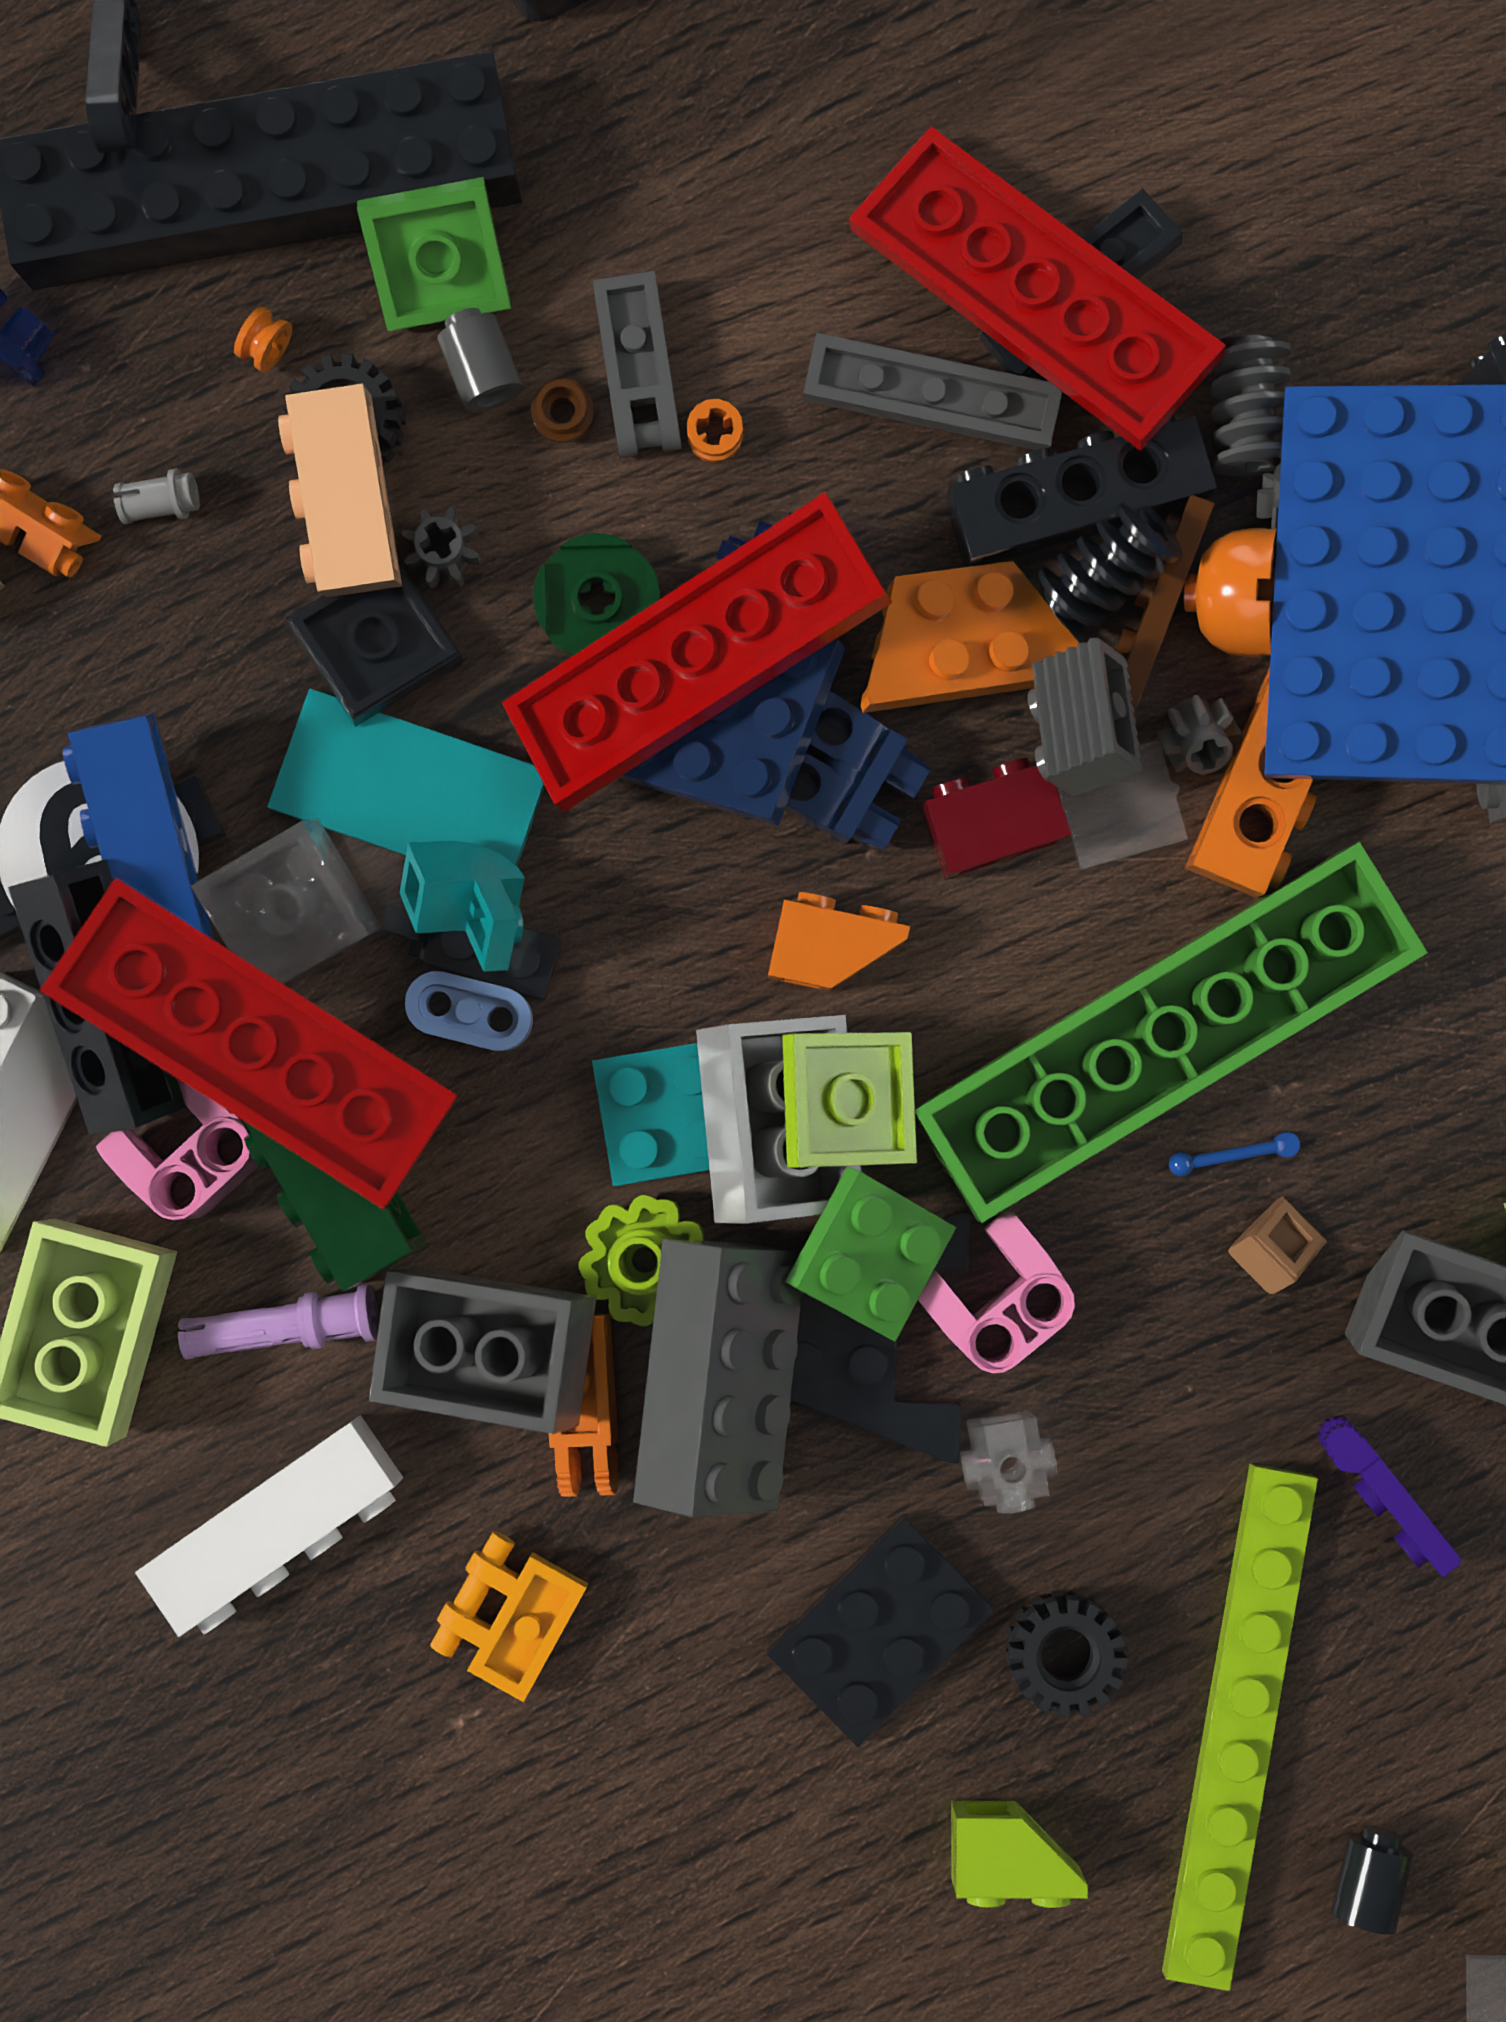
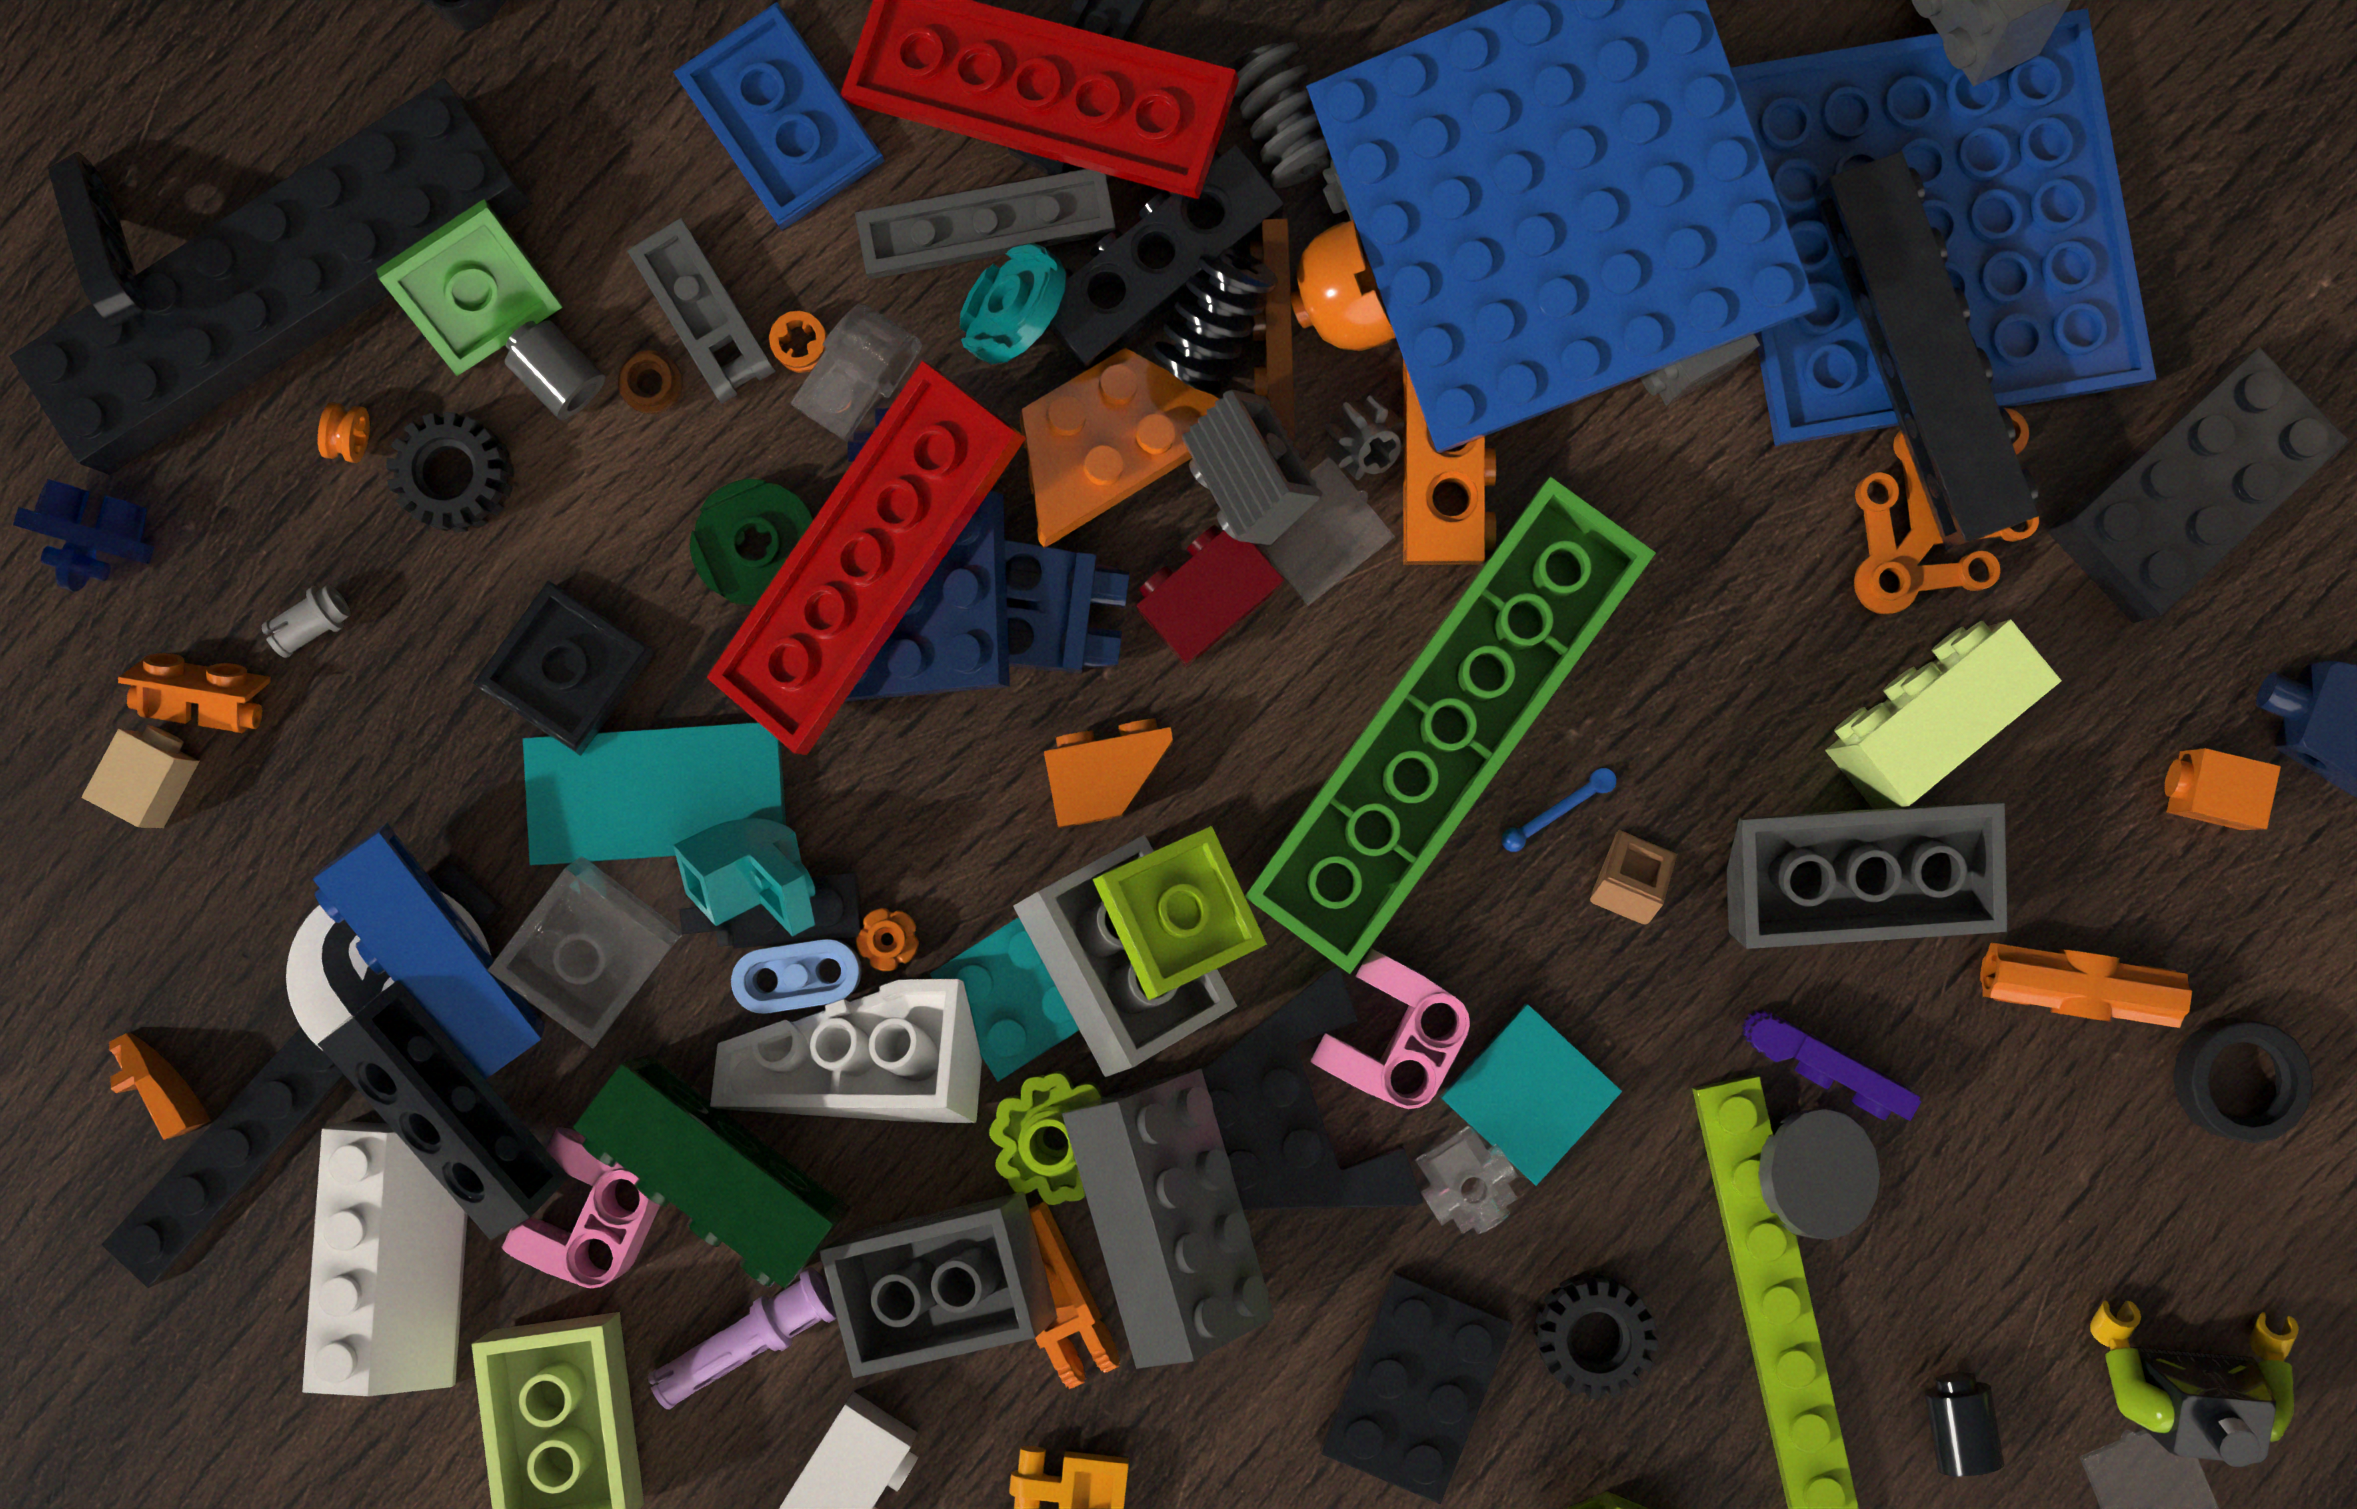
camera: 20 degrees left, 0 degrees up
(249, 1043) = (601, 1097): red plate -> none
(340, 491) = (473, 545): light nougat brick -> none
(457, 538) = (575, 563): dark grey gear -> none
(524, 1118) = (879, 1058): none -> white wedge
(583, 1010) = (904, 943): none -> orange plate
(764, 472) = (861, 360): none -> clear brick
(782, 216) = (779, 116): none -> blue tile
(870, 1253) = (1260, 1046): bright green plate -> none
(927, 477) = (1012, 304): none -> teal tile
(1099, 1404) = (1530, 1093): none -> teal tile
(1336, 1591) = (1819, 1174): none -> dark grey tile

